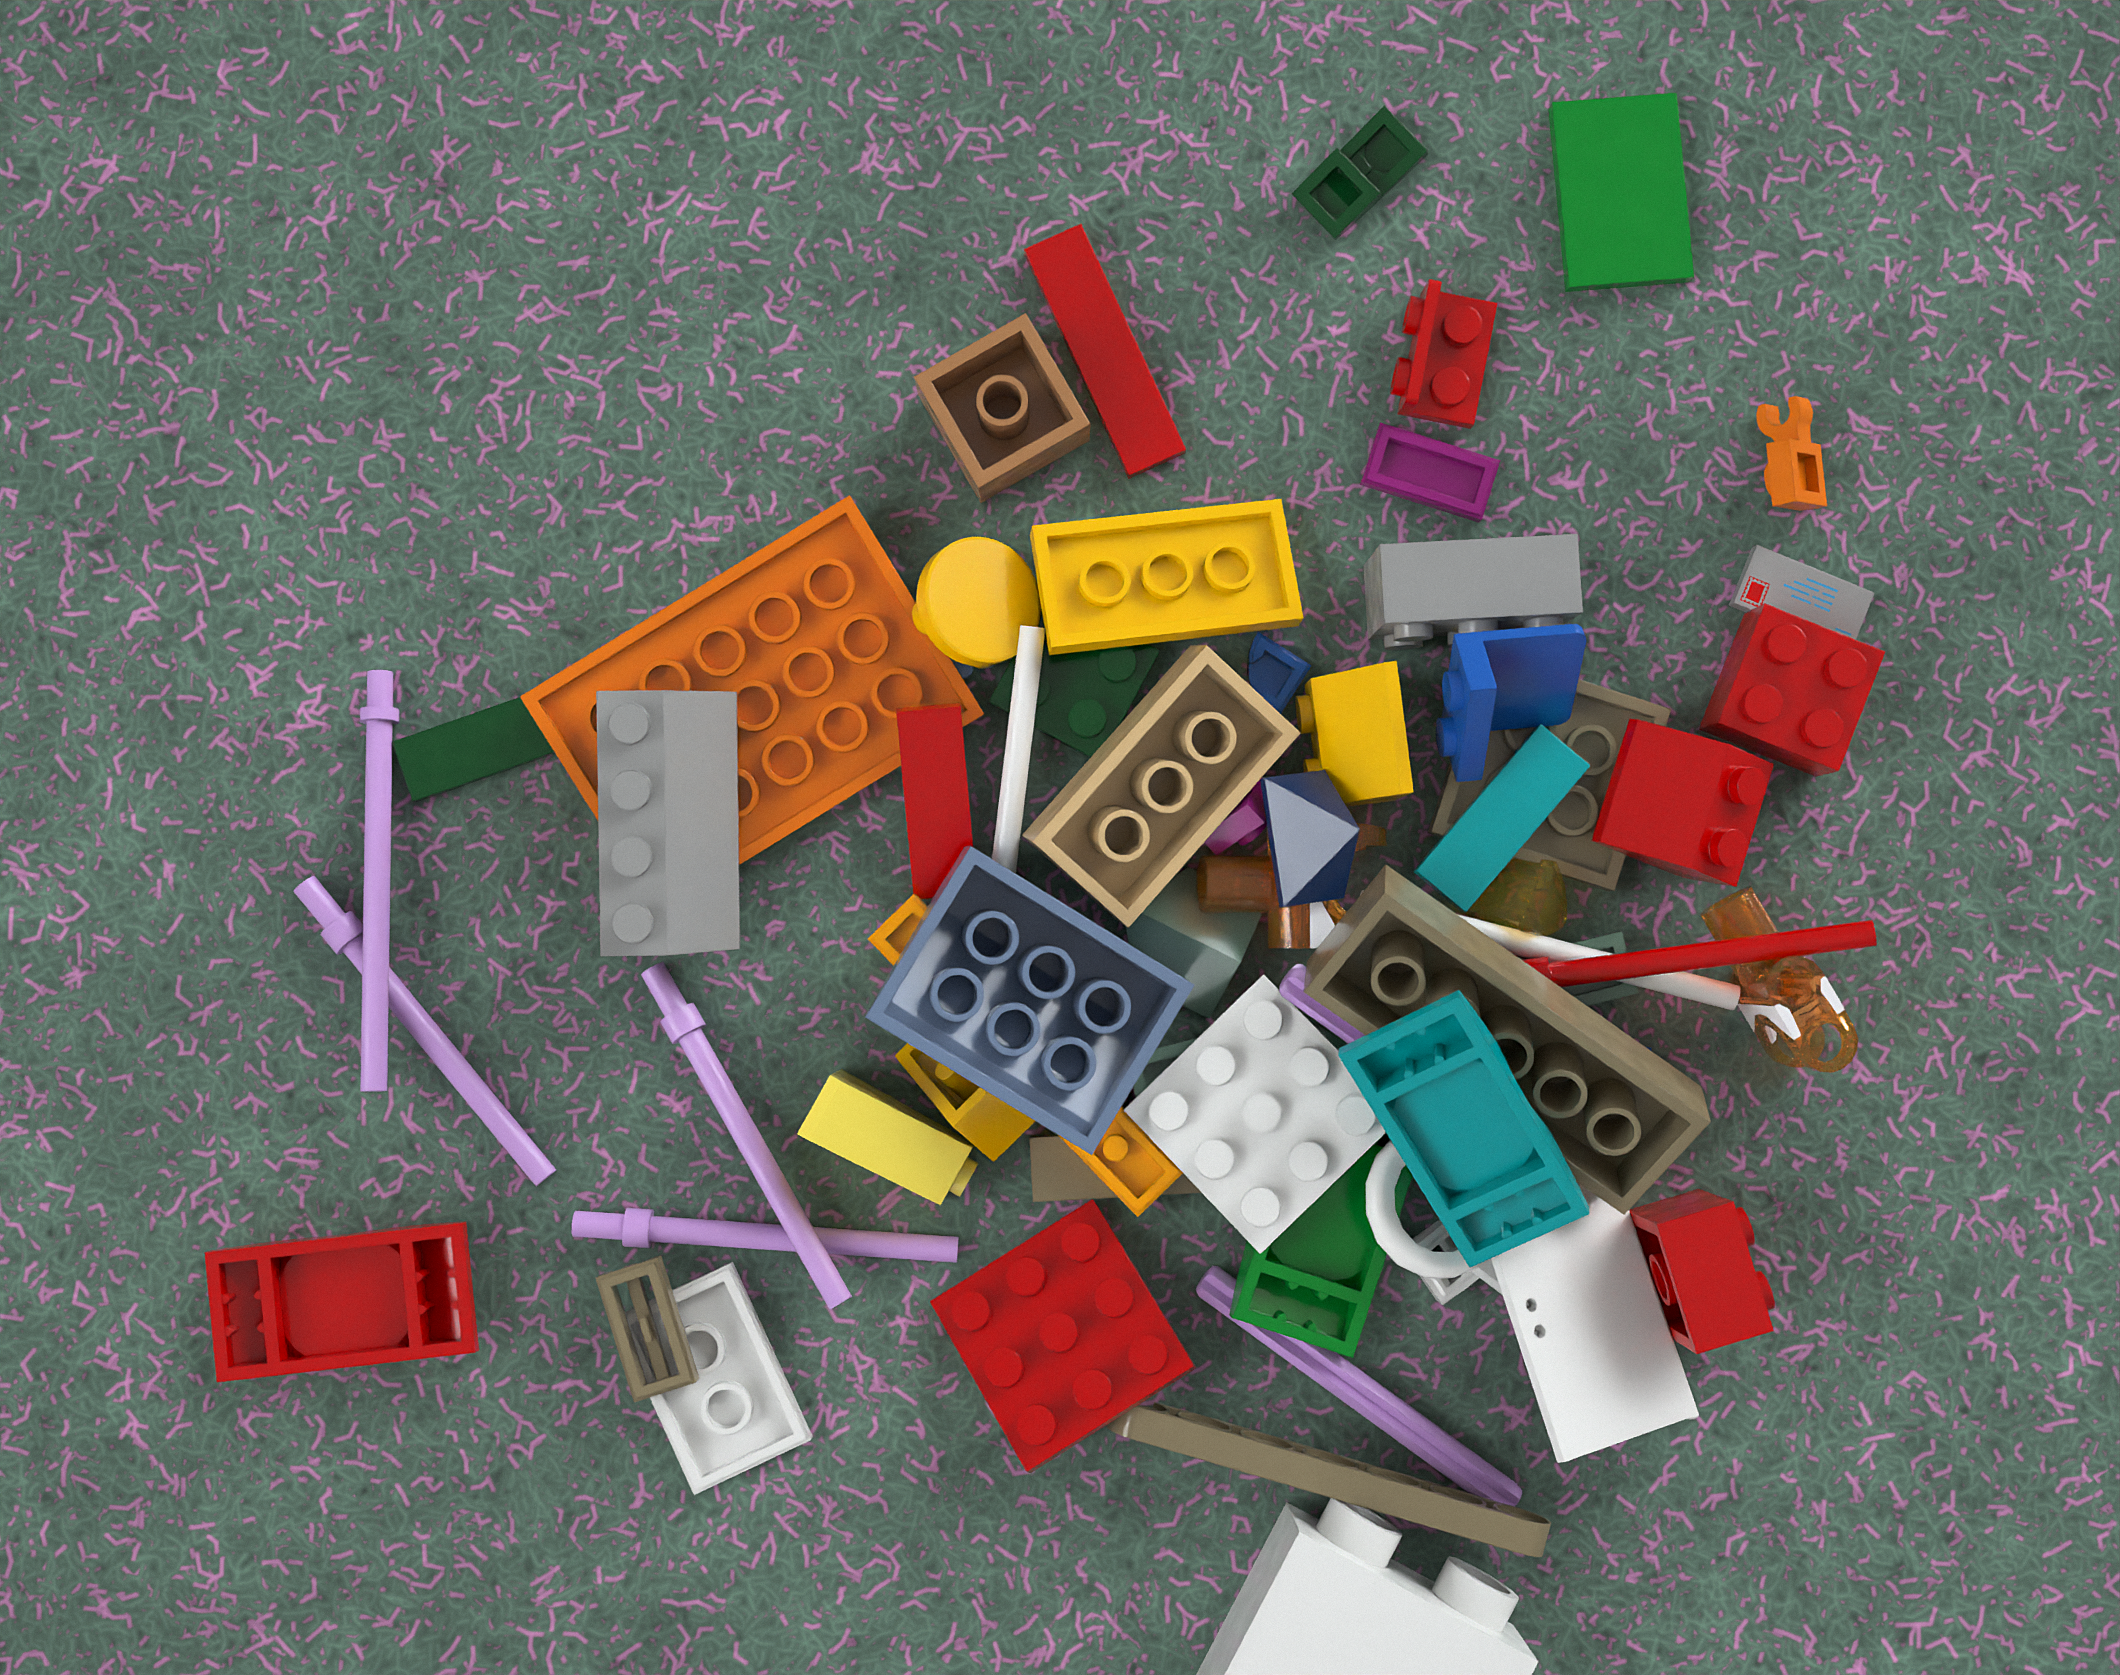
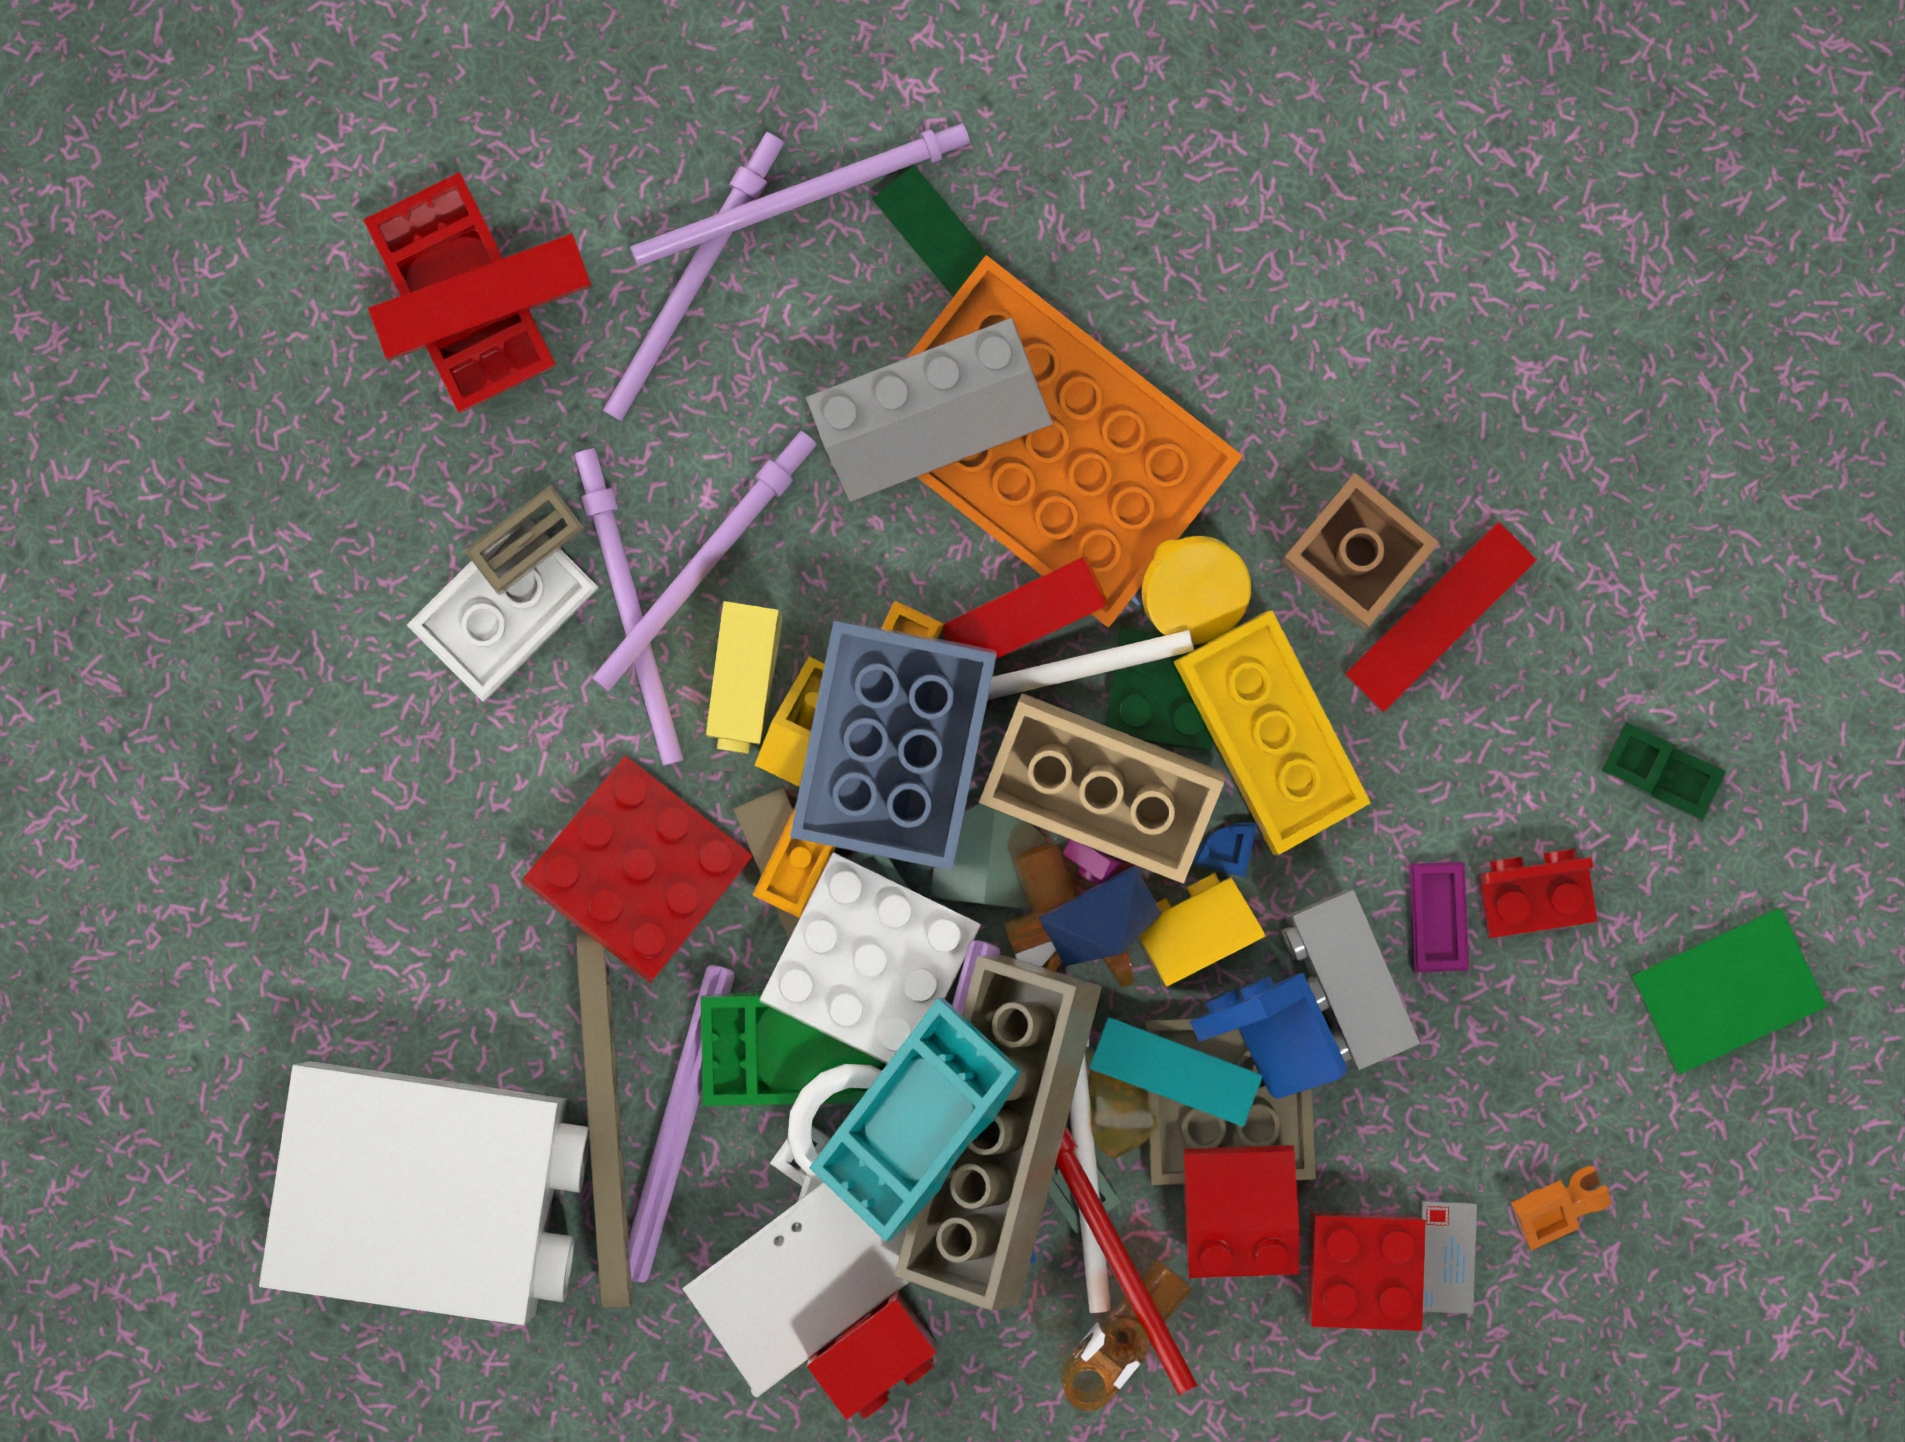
camera: 75 degrees right, 0 degrees up
(353, 1283) = (480, 297): none -> red tile

